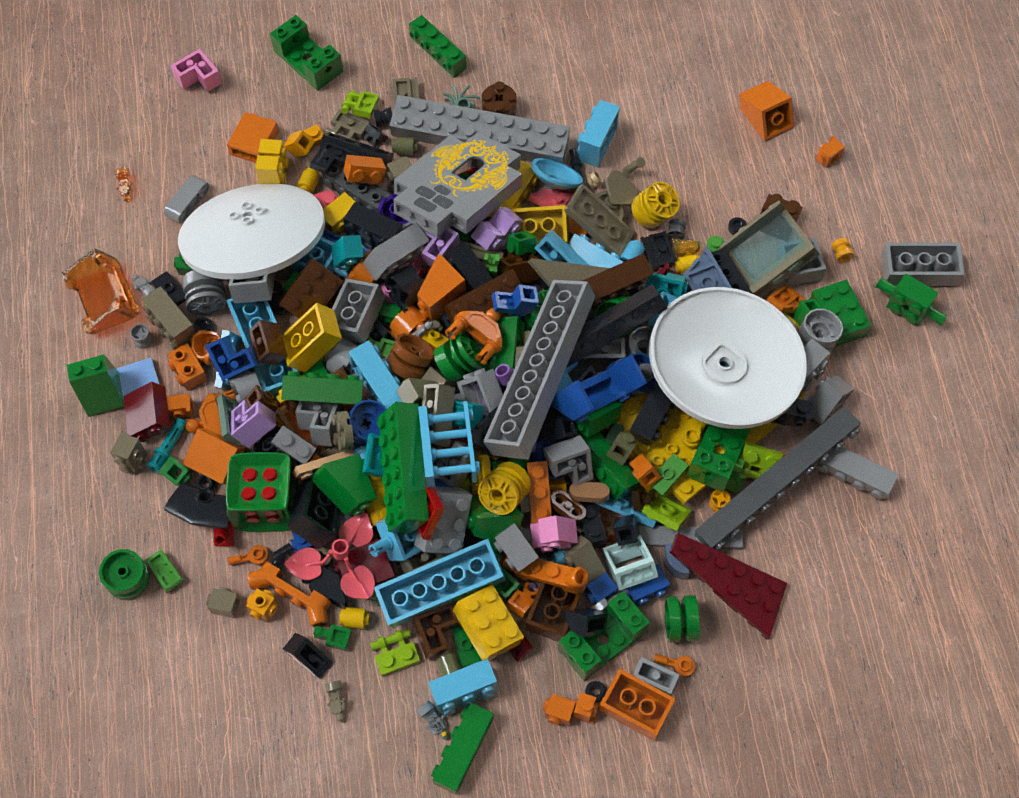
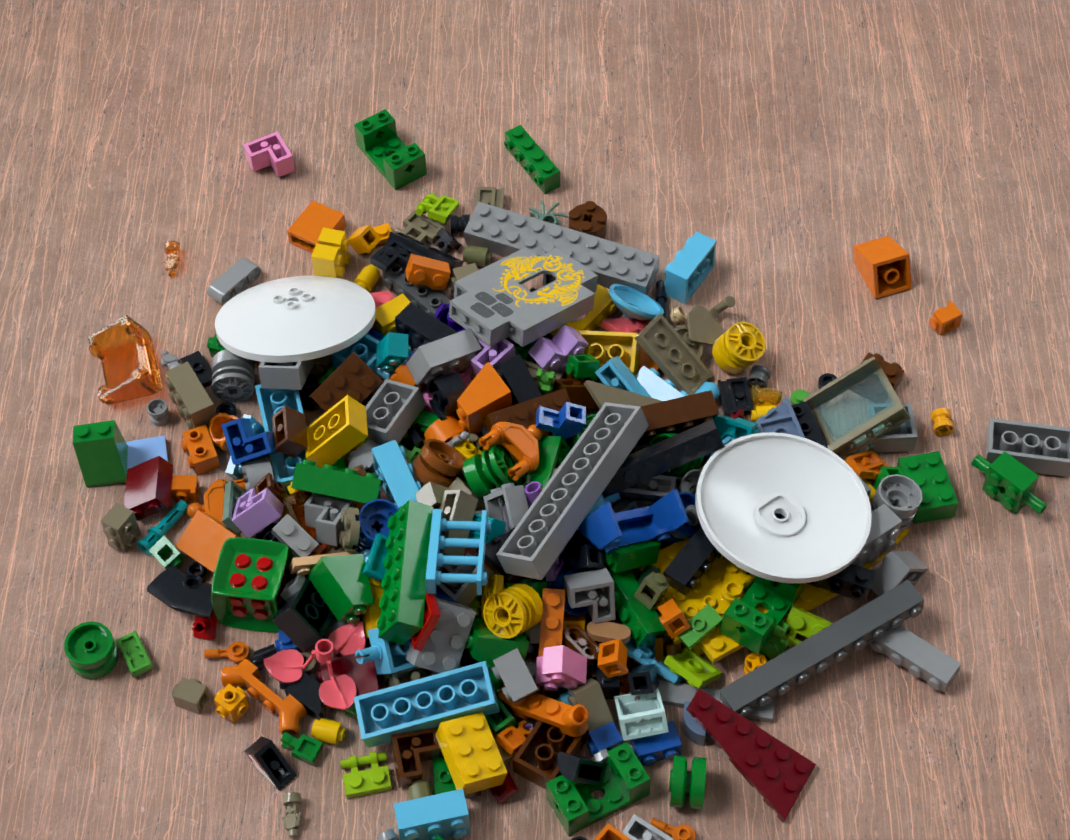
camera: 10 degrees right, 10 degrees down
(299, 490) = (292, 586): none -> light grey tile
(598, 516) = (613, 658): none -> orange brick

